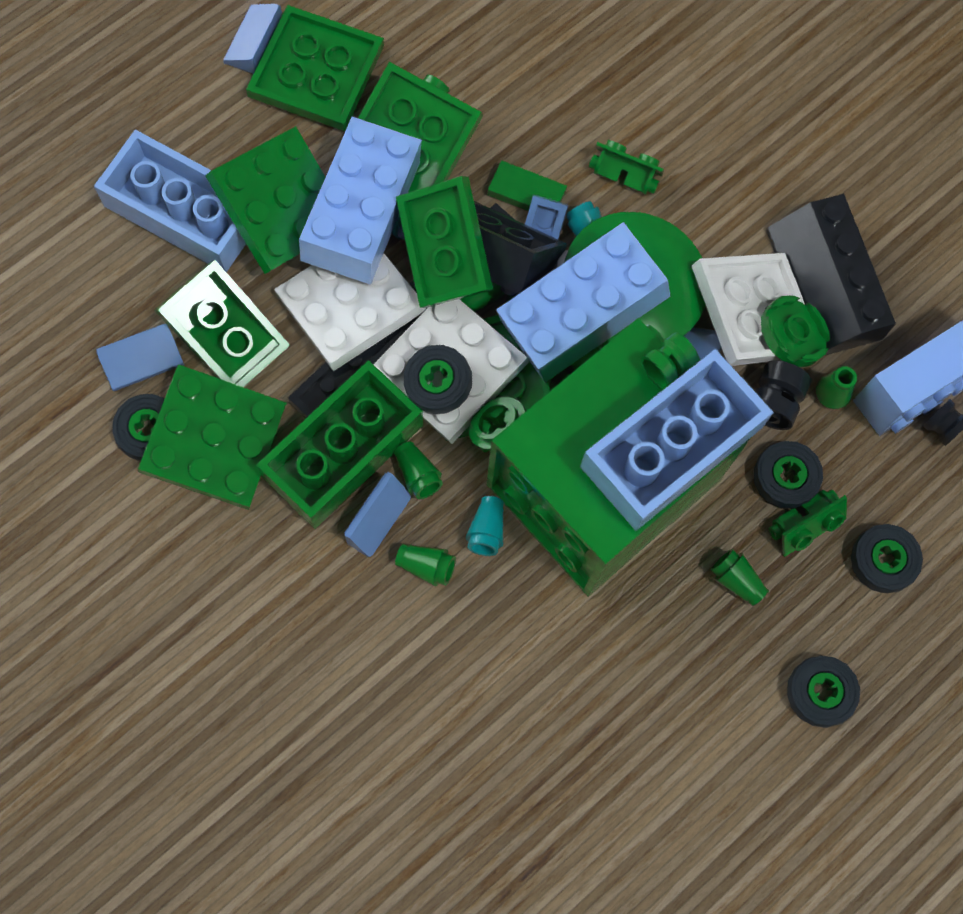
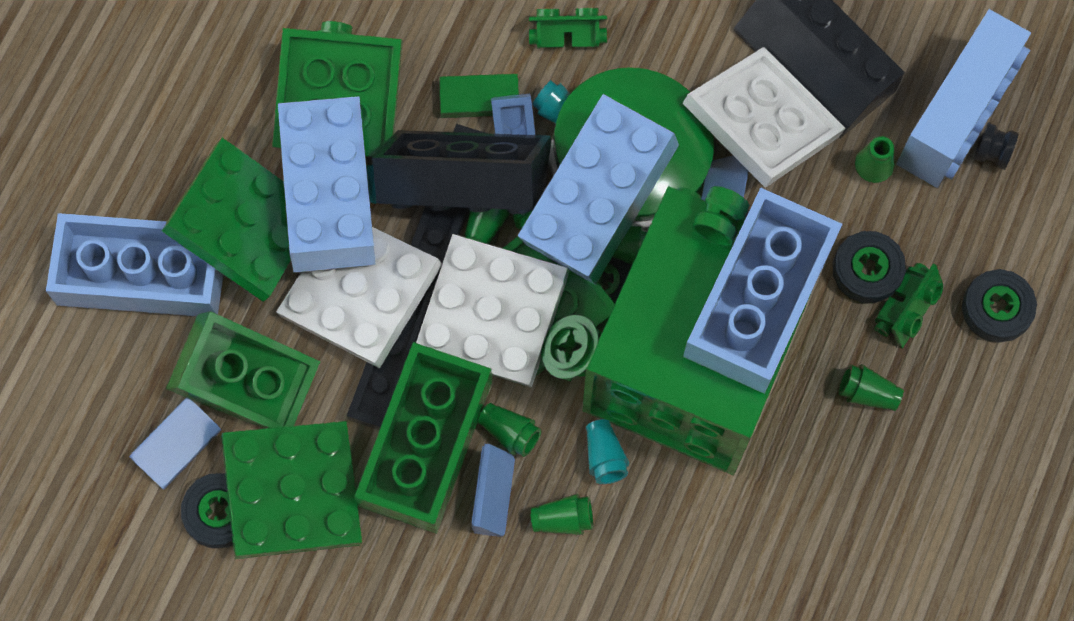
camera: 20 degrees left, 0 degrees up
(253, 36) = (121, 59): medium blue slope -> none
(315, 67) = (203, 63): green plate -> none
(444, 242) = (434, 191): green plate -> none
(454, 387) = (470, 328): black bush -> none
(782, 389) = (825, 188): black wheel -> none
(795, 331) = (811, 123): green tile -> none
(833, 709) = (1014, 476): black bush -> none

